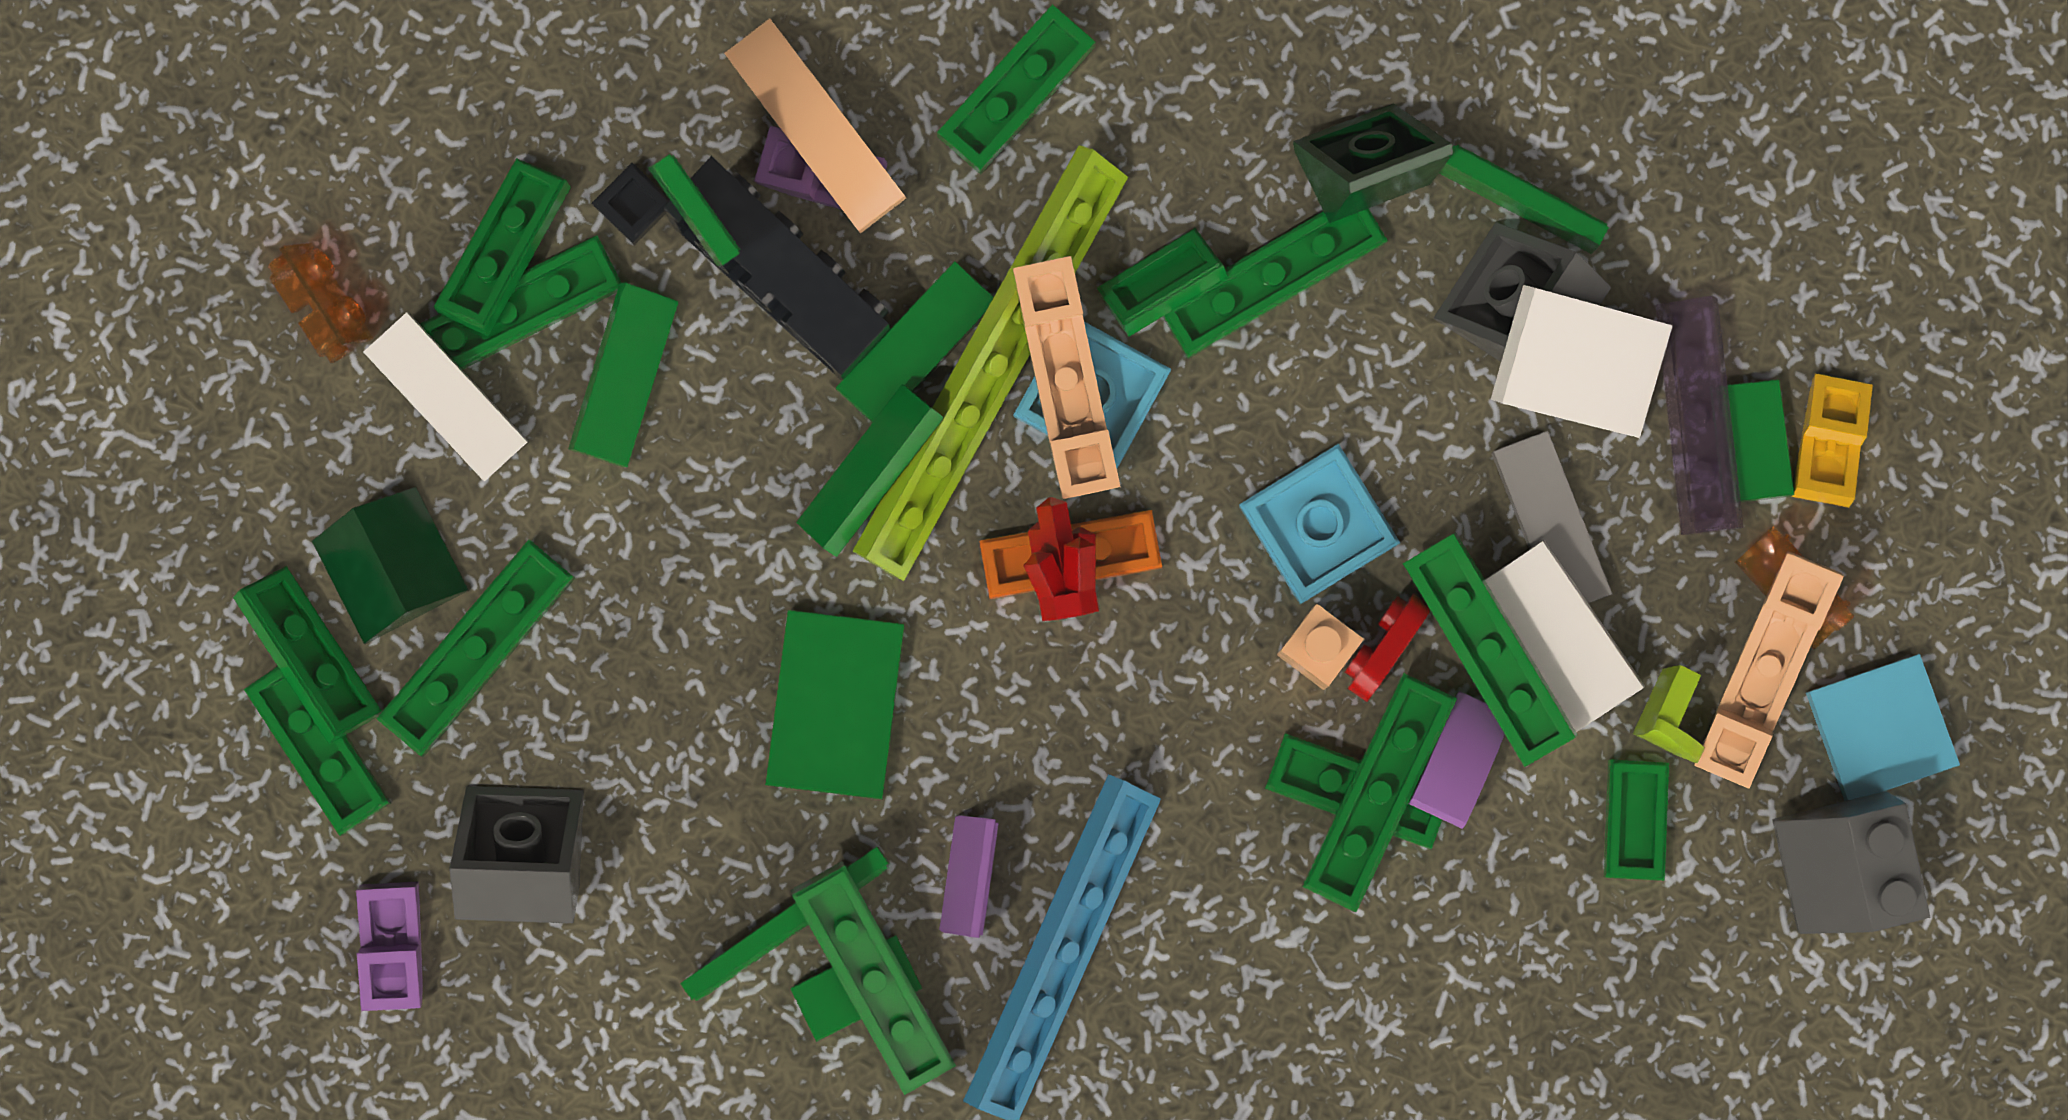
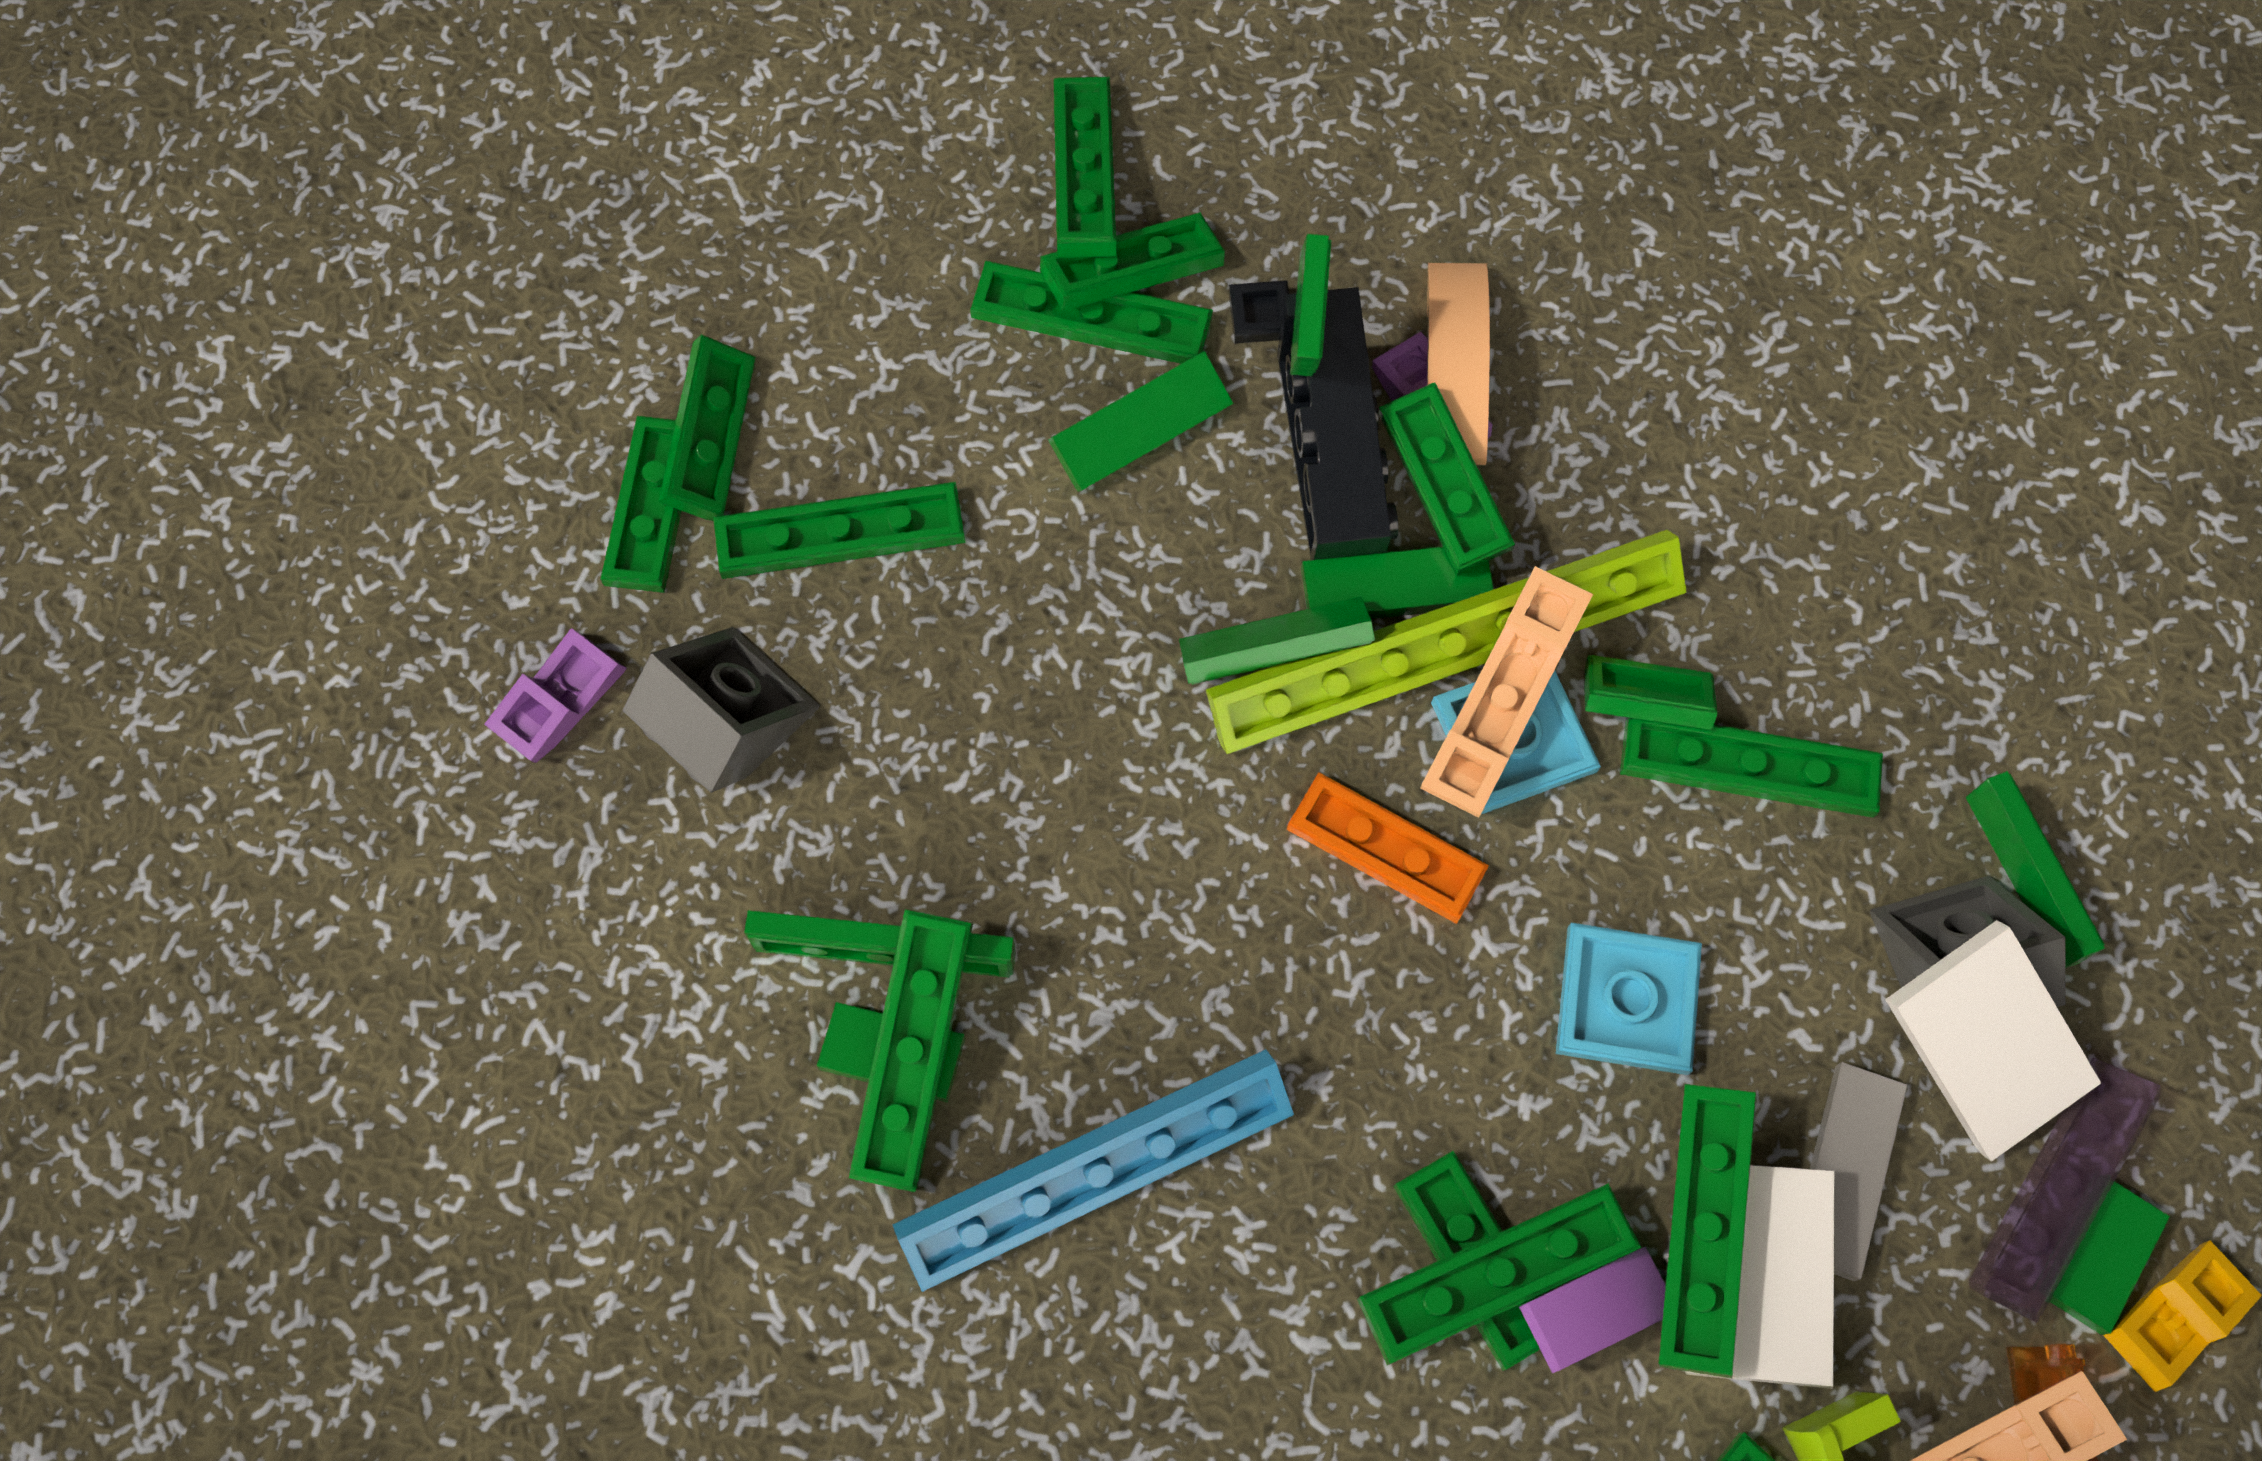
camera: 40 degrees right, 15 degrees down
(305, 278) = (964, 176): clear orange hinge -> none
(389, 563) = (834, 414): dark green slope -> none
(395, 196) = (1084, 167): none -> green tile
(445, 396) = (989, 328): white tile -> none
(835, 704) = (1082, 806): green tile -> none
(889, 240) = (1446, 478): none -> green tile
(969, 876) = (1072, 1040): medium lavender slope -> none
(1016, 89) = (1646, 456): green plate -> none
(1062, 563) = (1374, 839): red rock -> none
(1320, 647) = (1548, 1097): light nougat brick -> none
(1370, 160) = (1917, 738): dark green slope -> none
(1372, 665) = (1637, 1141): red plate -> none

